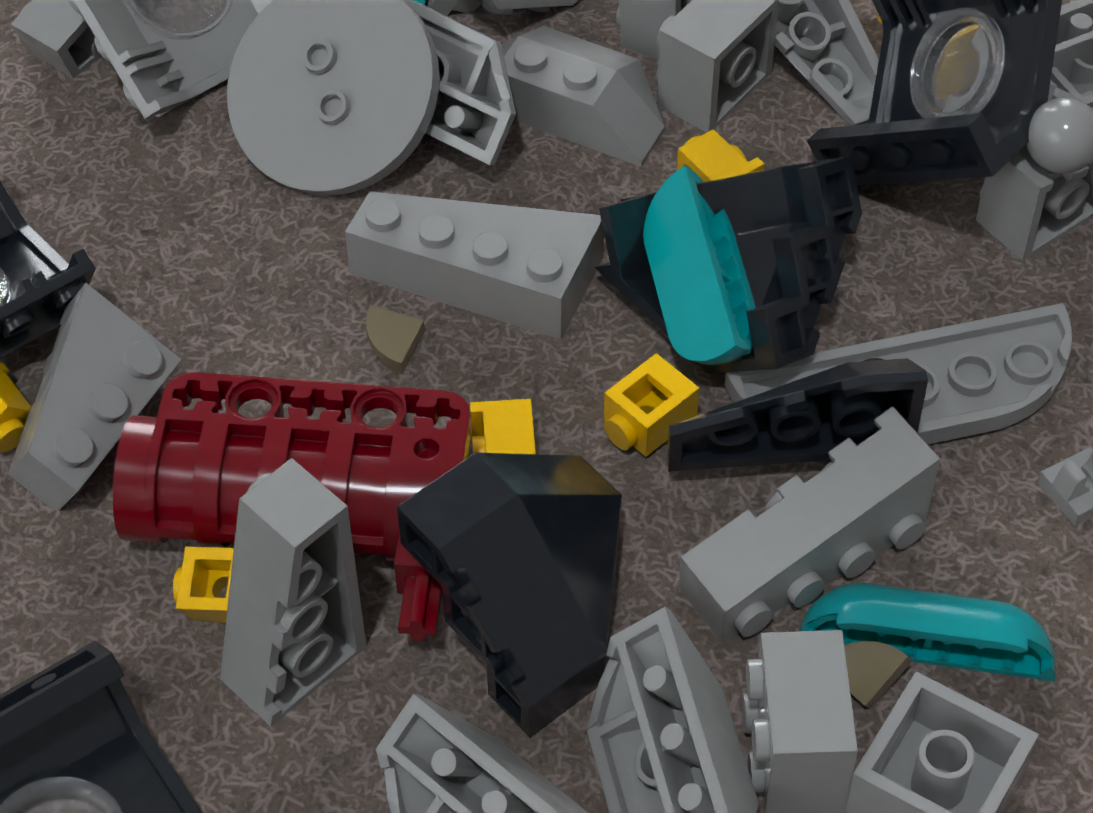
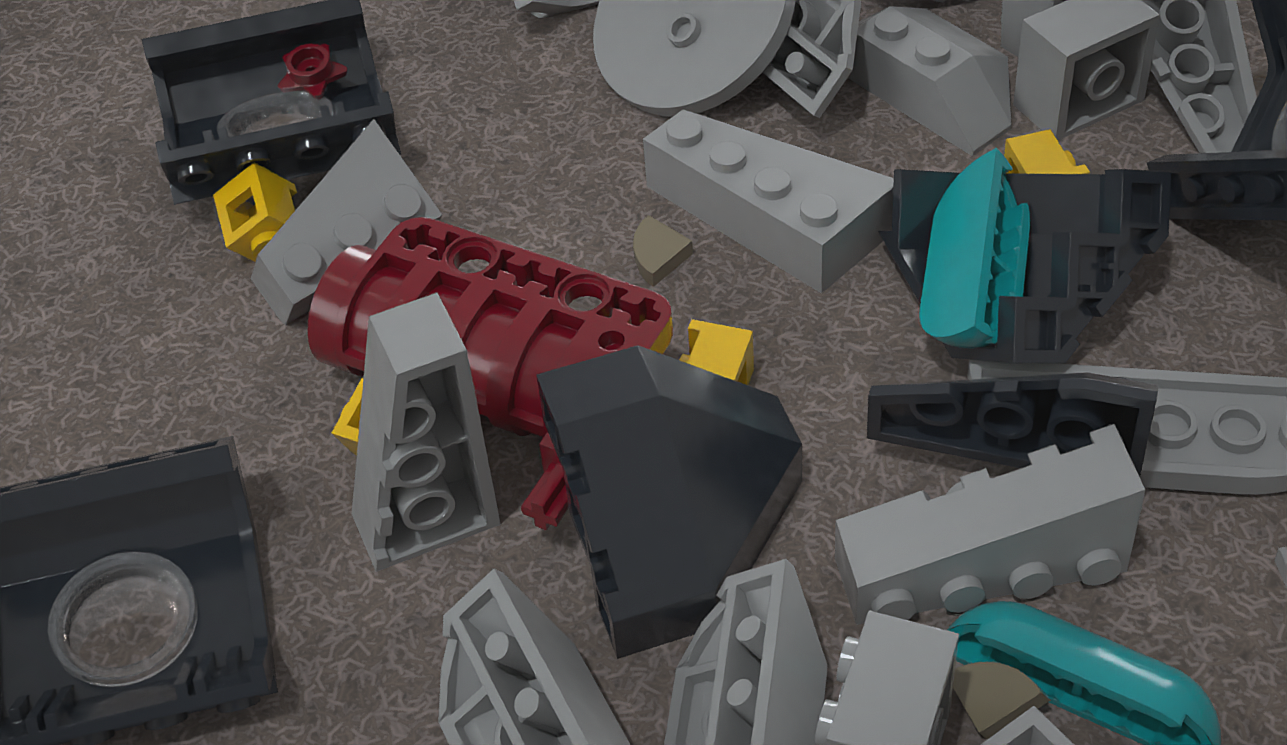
camera: 25 degrees right, 5 degrees down
(646, 405) = (870, 359): yellow brick -> none

